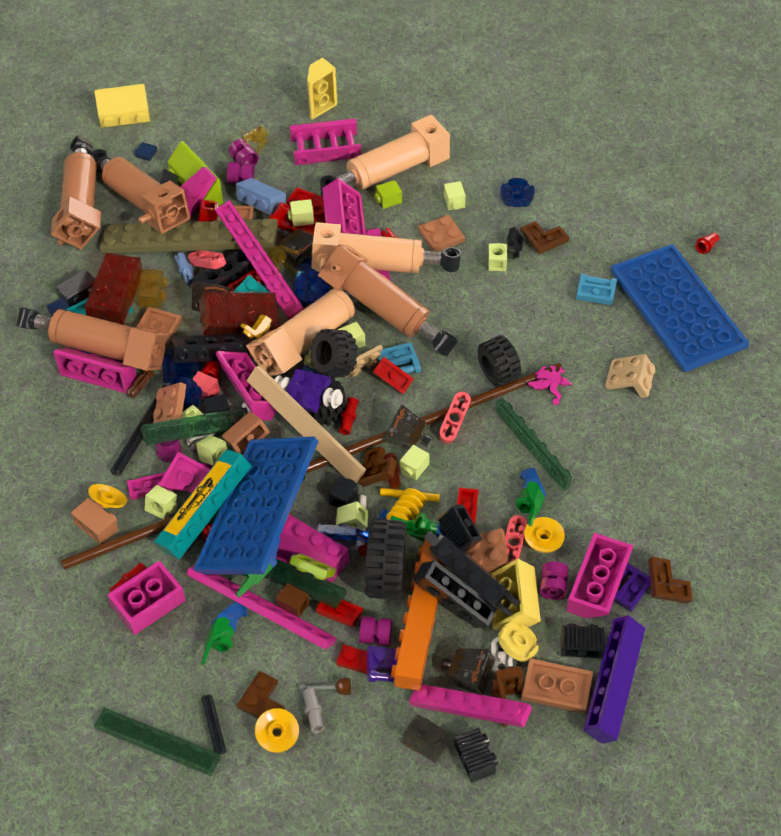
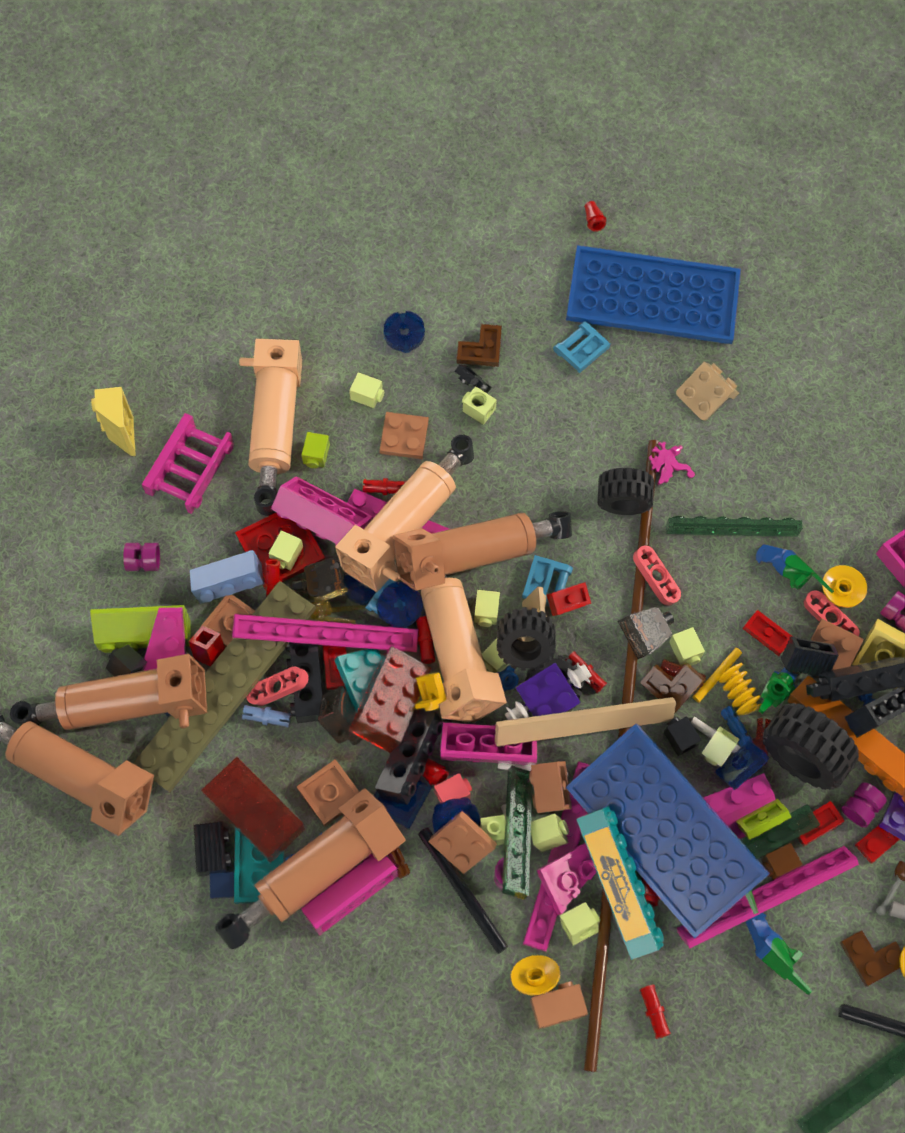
camera: 60 degrees left, 15 degrees up
(145, 151) = (45, 656): dark blue tile -> none
(146, 597) = (696, 1005): dark pink brick -> none
(152, 288) = (277, 779): clear yellow brick -> none
(215, 404) = (490, 796): black brick -> none
(236, 171) = (168, 577): magenta wheel -> none
(258, 136) = (121, 525): clear yellow plant -> none

